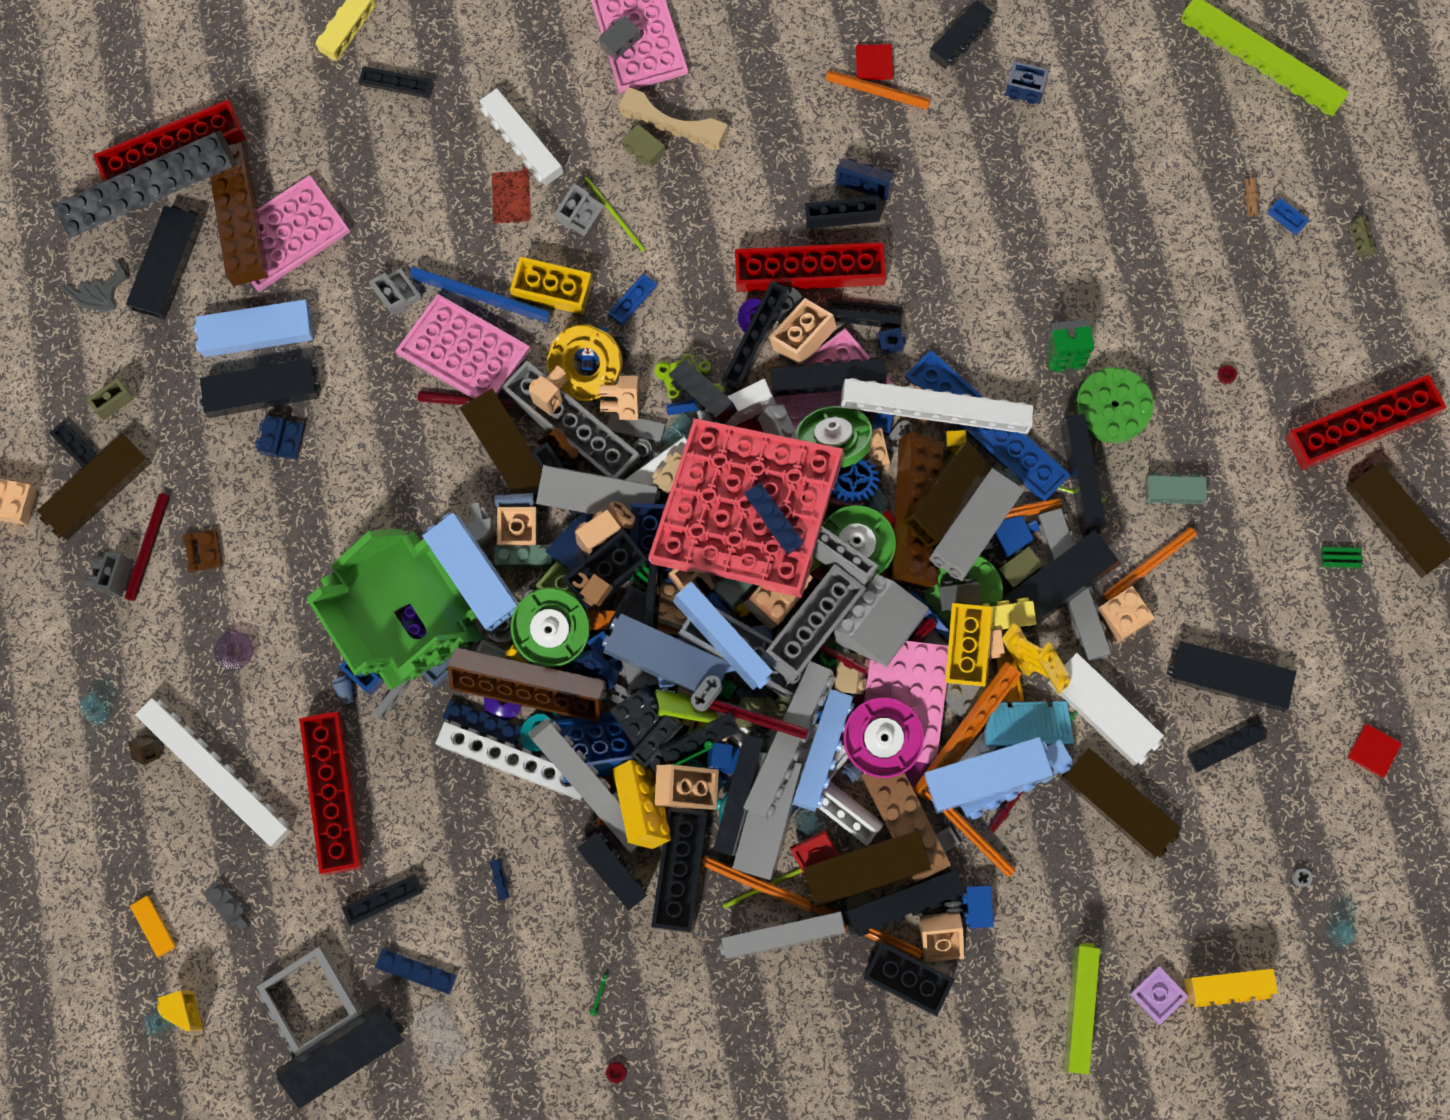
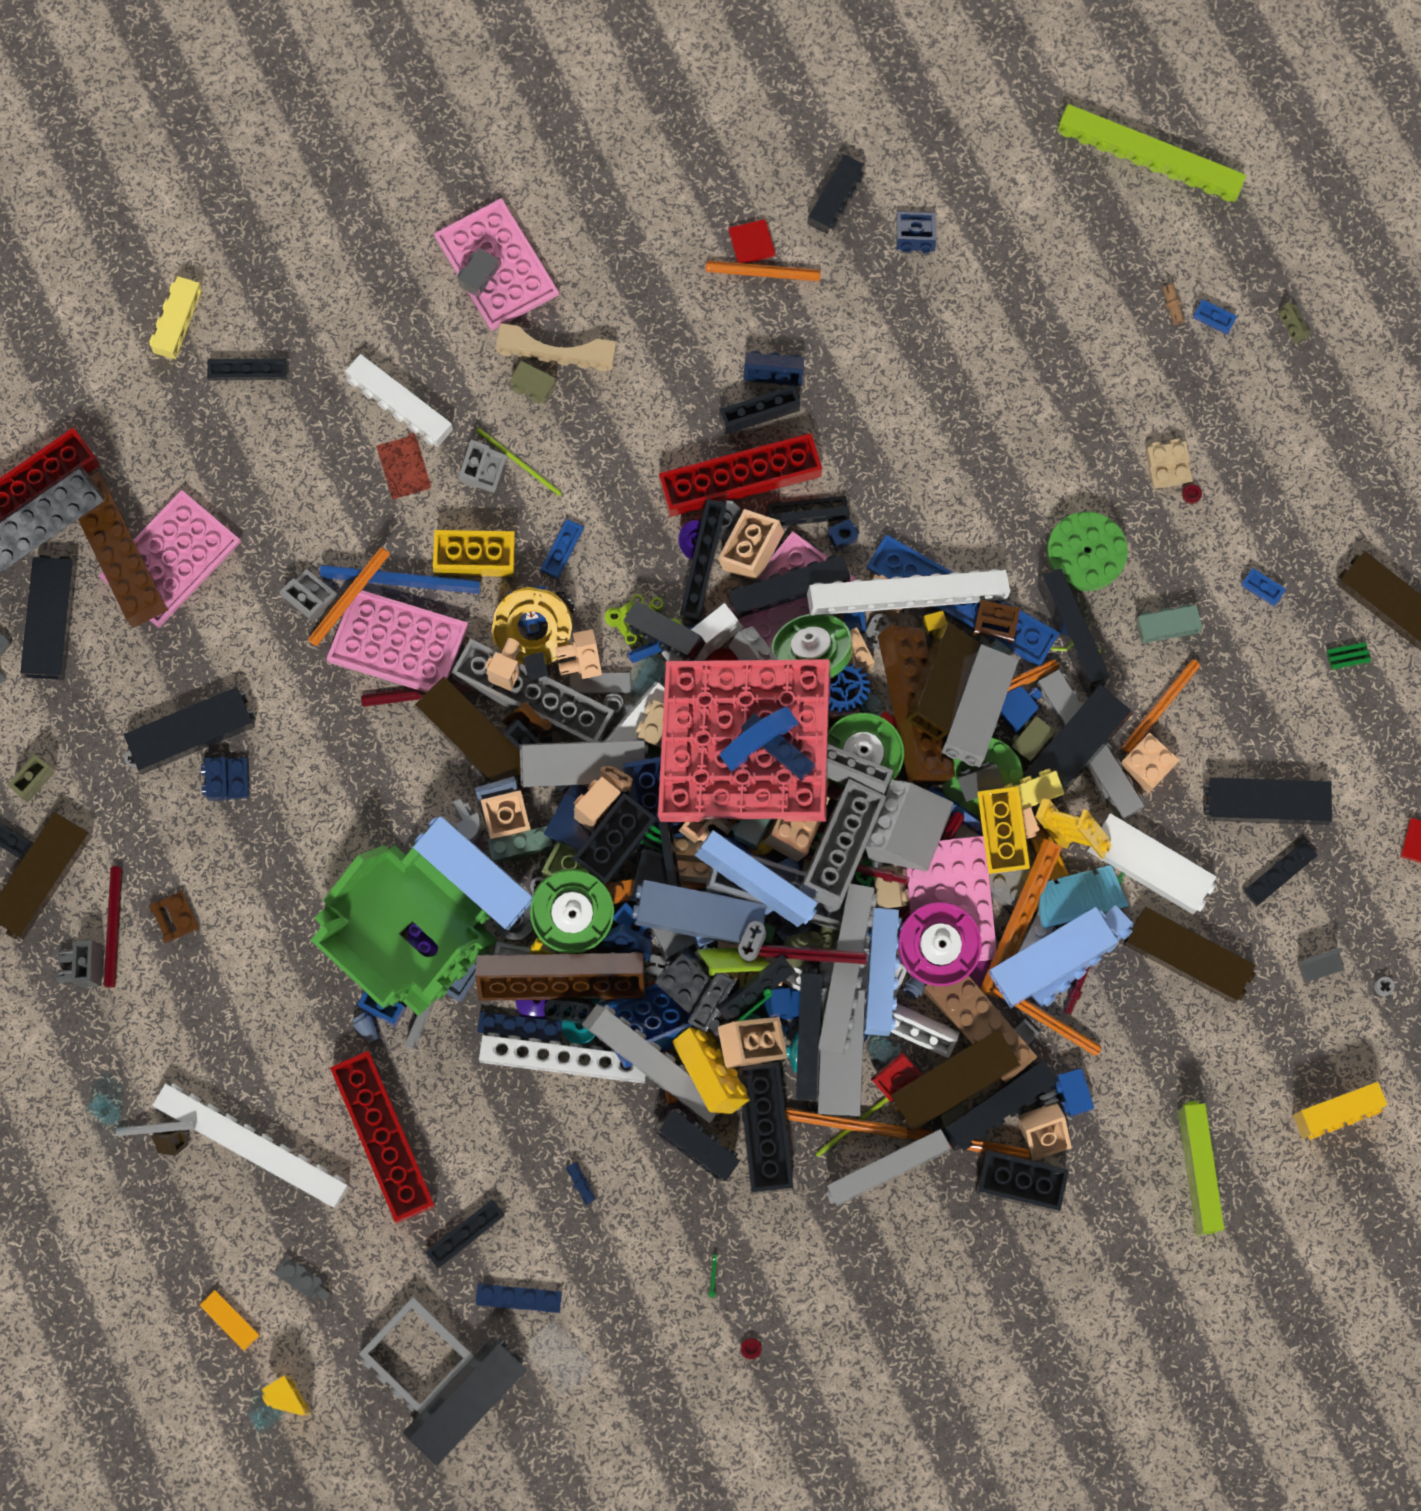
camera: 25 degrees left, 0 degrees up
(133, 736) = (155, 1128): none -> light grey bar
(225, 647) = (233, 1004): clear purple dish -> none
(253, 328) = (165, 668): light blue brick -> none
(429, 299) = (349, 596): none -> orange axle
(524, 717) = (567, 1011): none -> black beam
(579, 397) = (536, 665): none -> black panel
(593, 590) = (610, 861): medium nougat brick -> none
(757, 503) = (757, 736): none -> blue slope
(1015, 445) = (998, 615): none -> reddish brown plate
(1069, 345) = (1027, 500): green piece -> none
(1158, 995) = (1272, 1137): lavender plate -> none
(1212, 342) = (1168, 464): none -> tan plate
(1245, 843) = (1321, 965): none -> dark grey panel
(1274, 475) = (1263, 587): none -> blue plate
(1365, 422) = (1340, 513): red brick -> none

